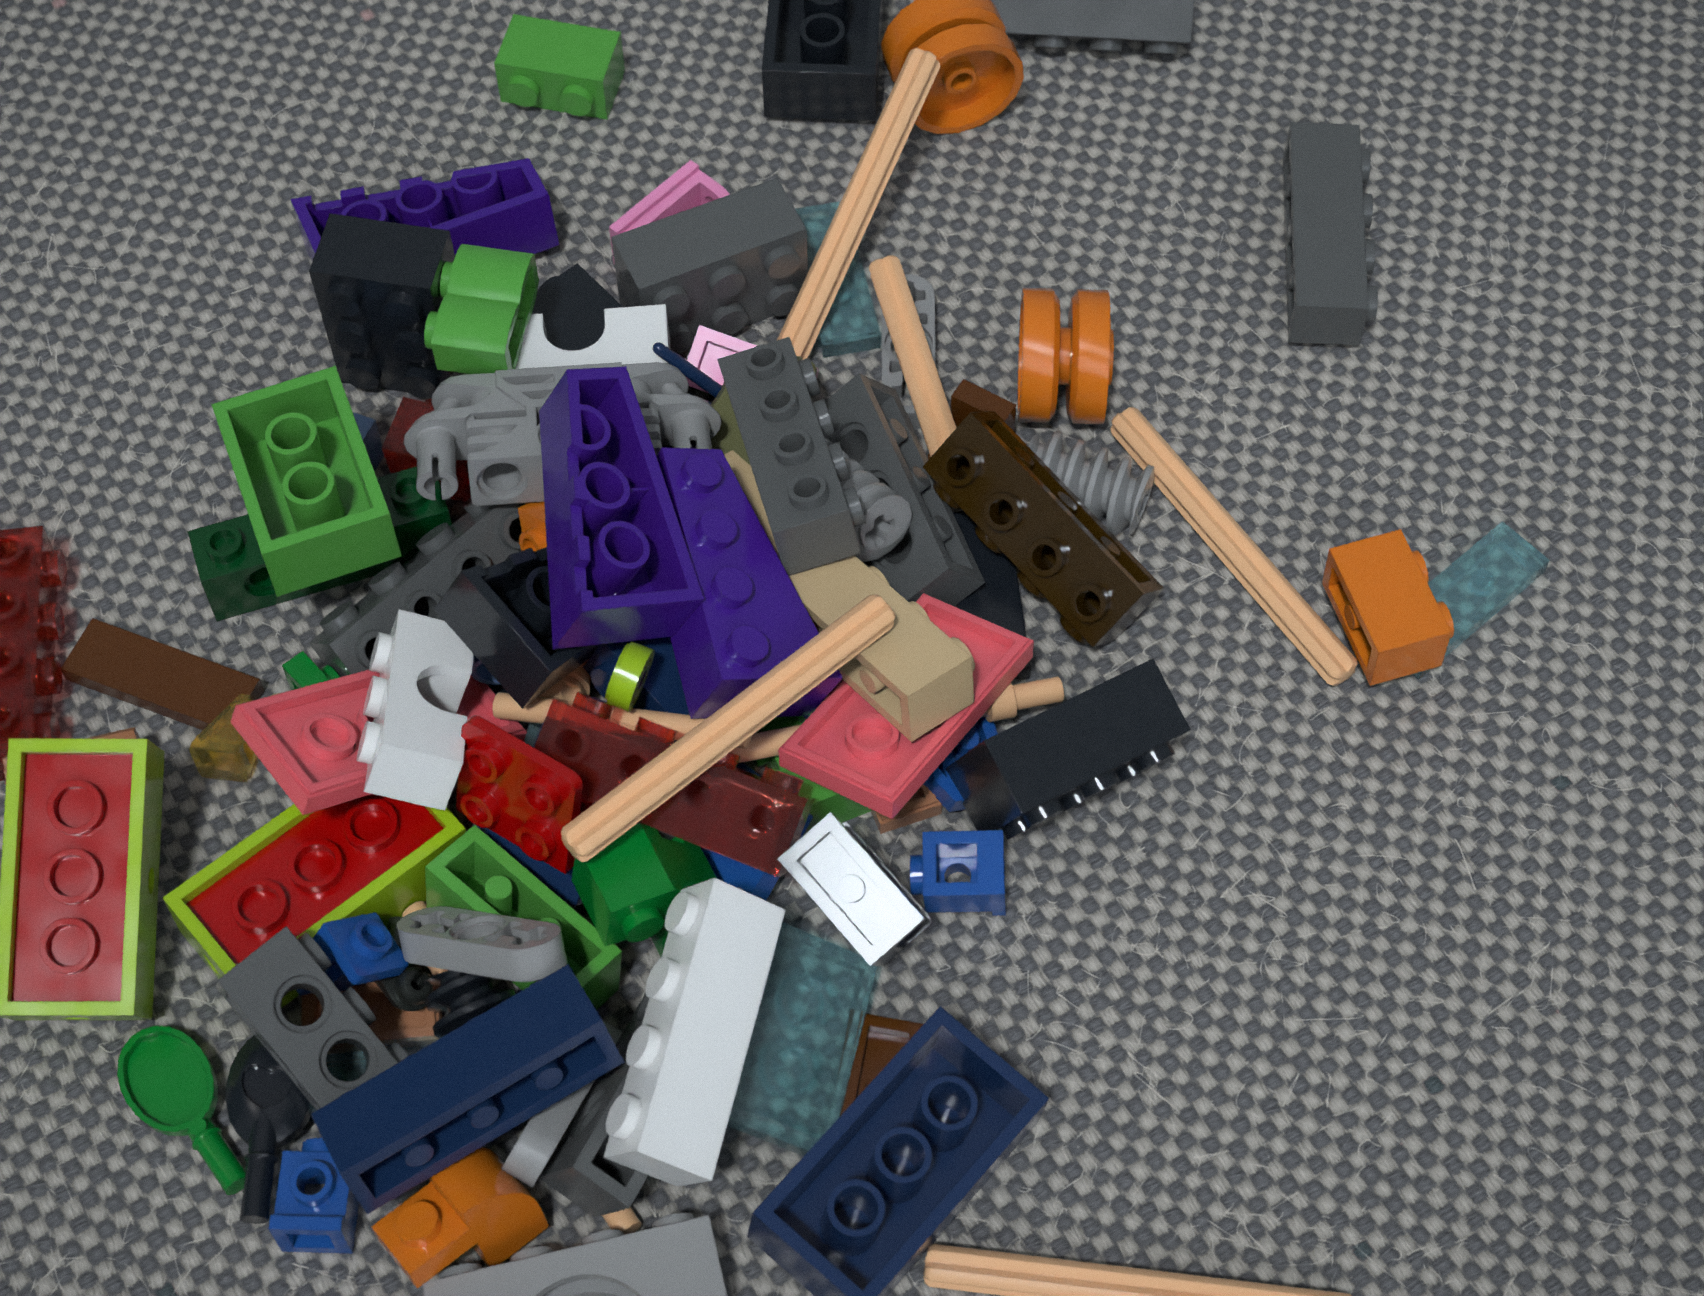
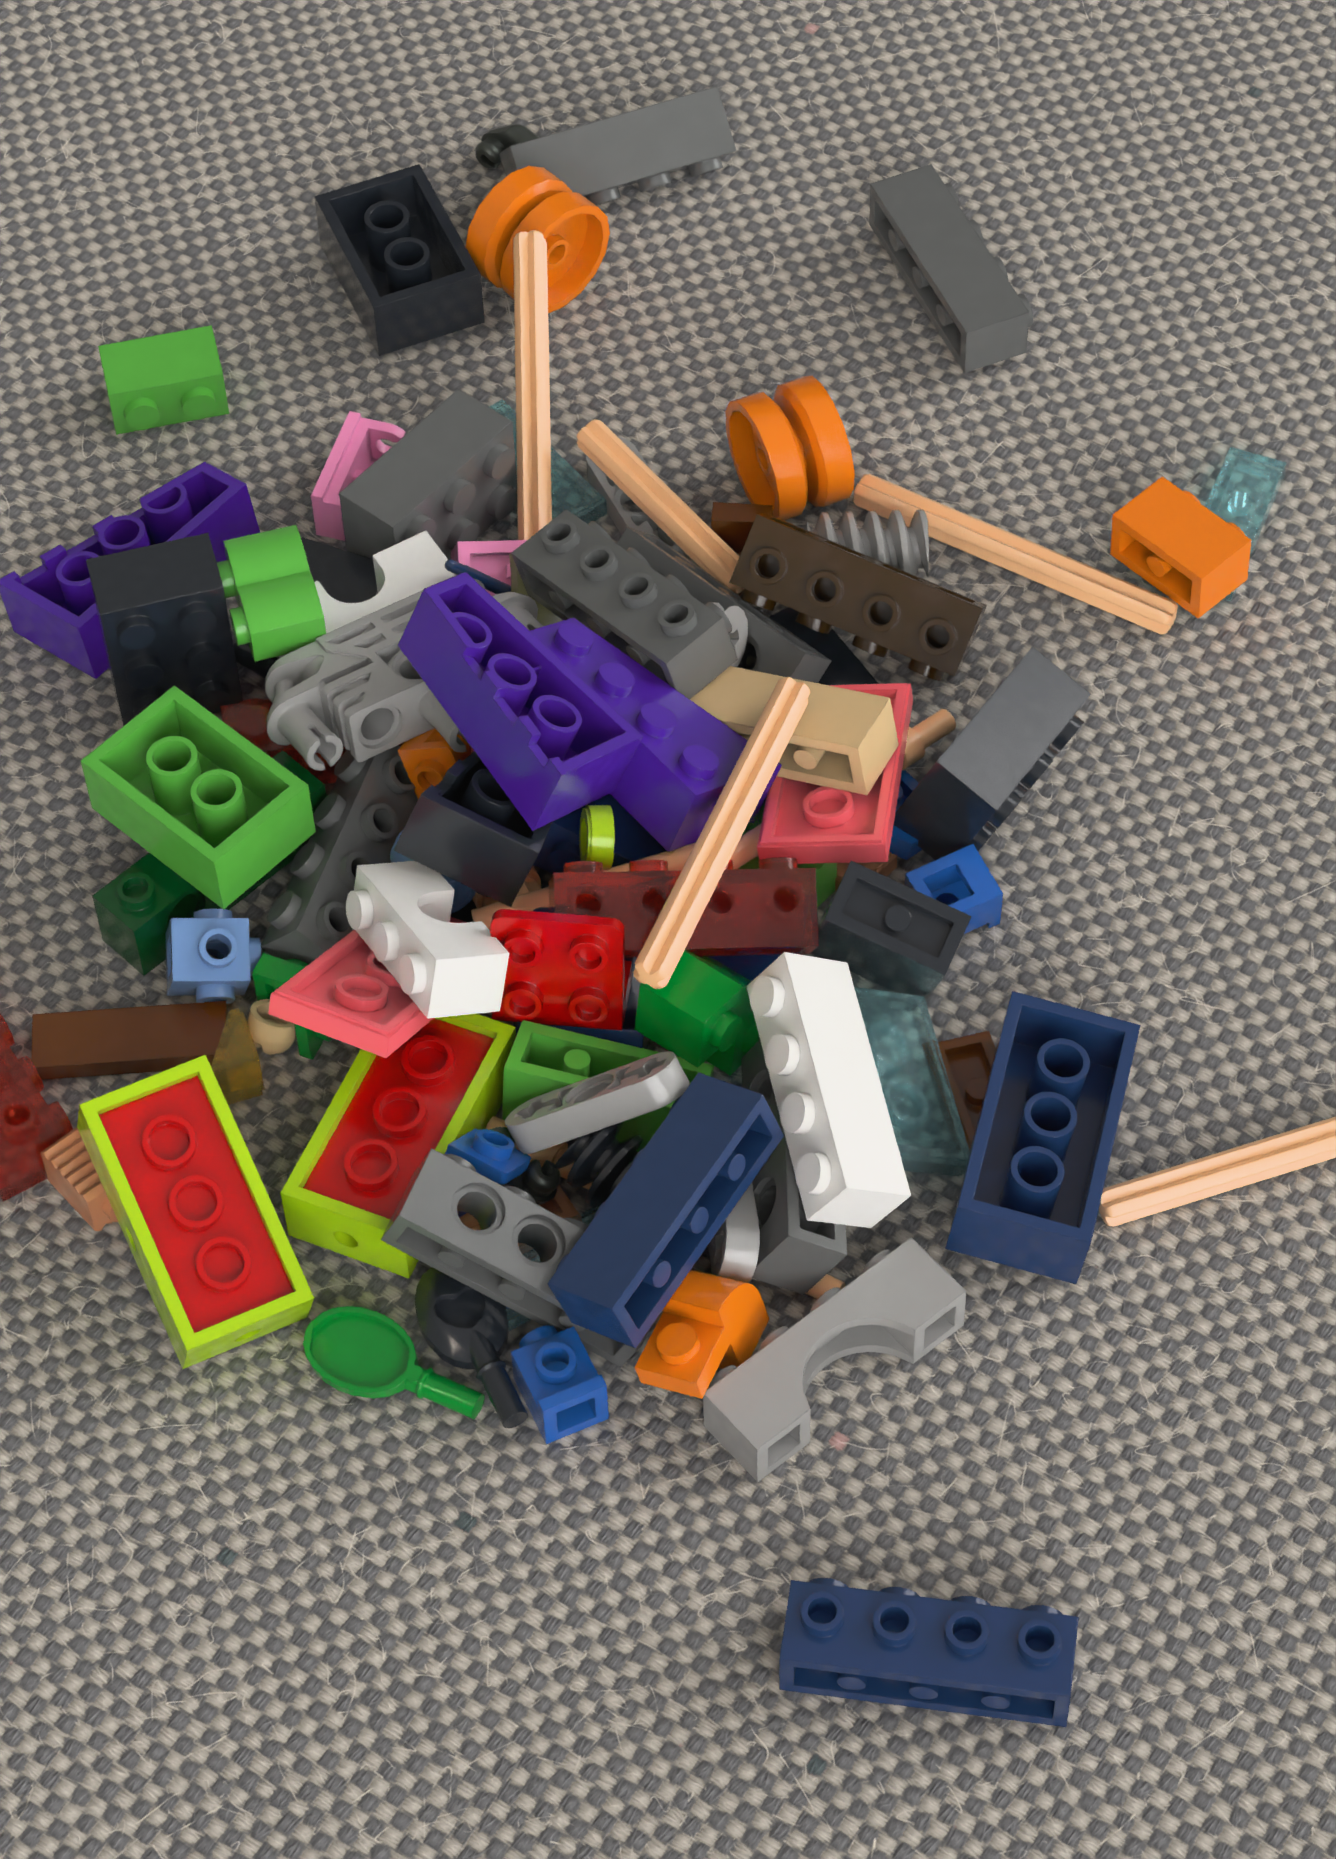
camera: 25 degrees left, 5 degrees down
(242, 623) = (188, 958): none -> medium blue brick

